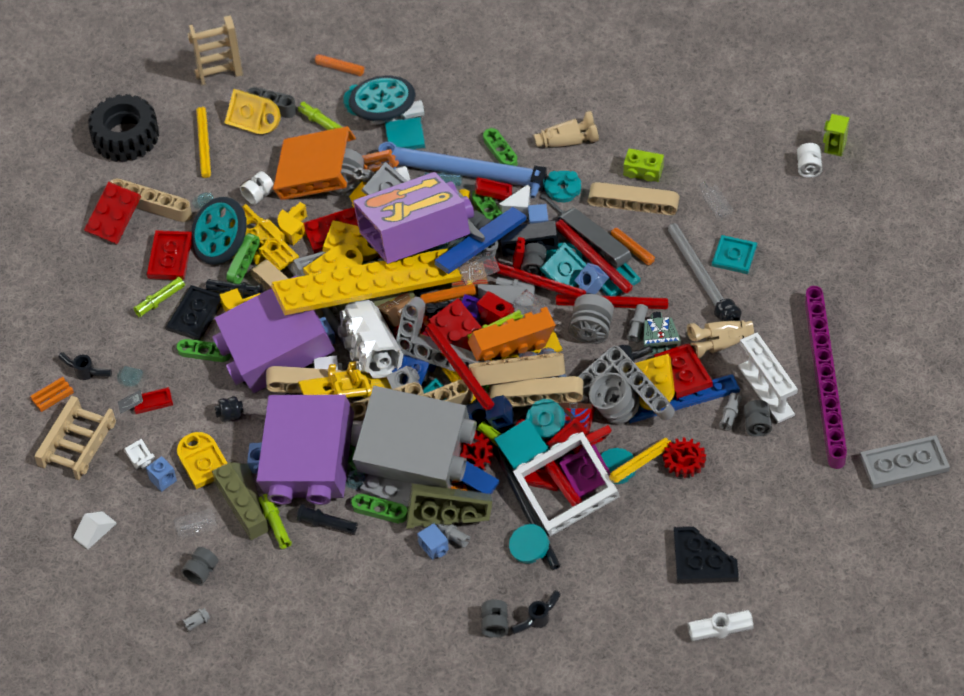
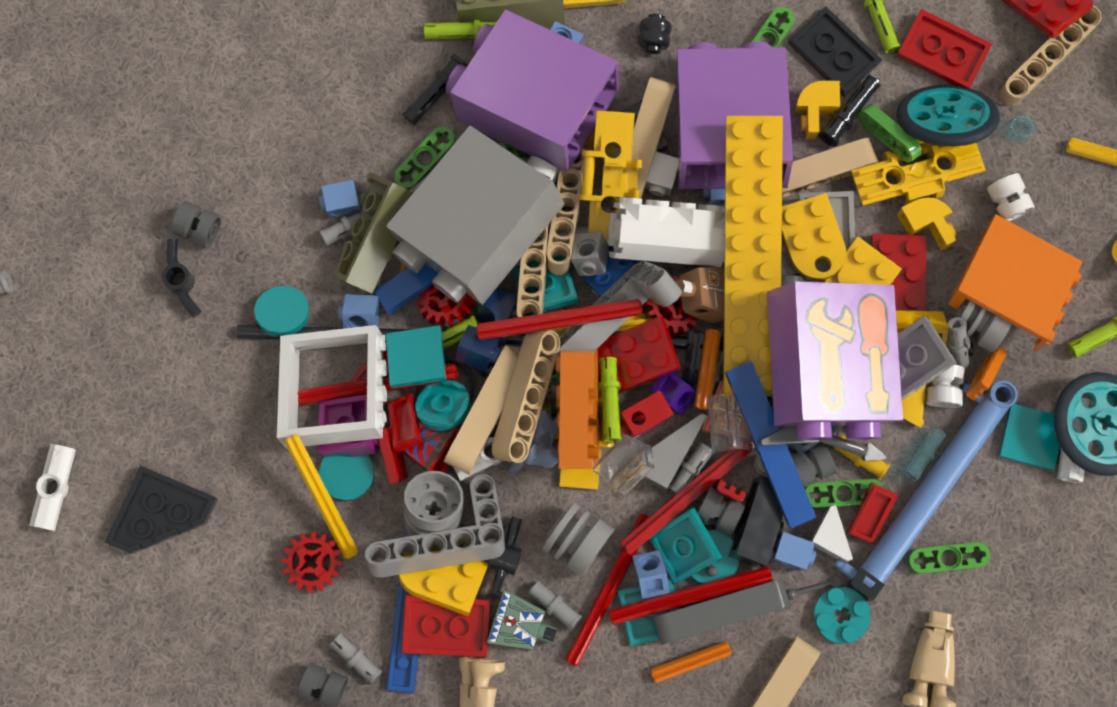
camera: 110 degrees right, 25 degrees up
(507, 495) = (359, 311): none -> medium blue brick

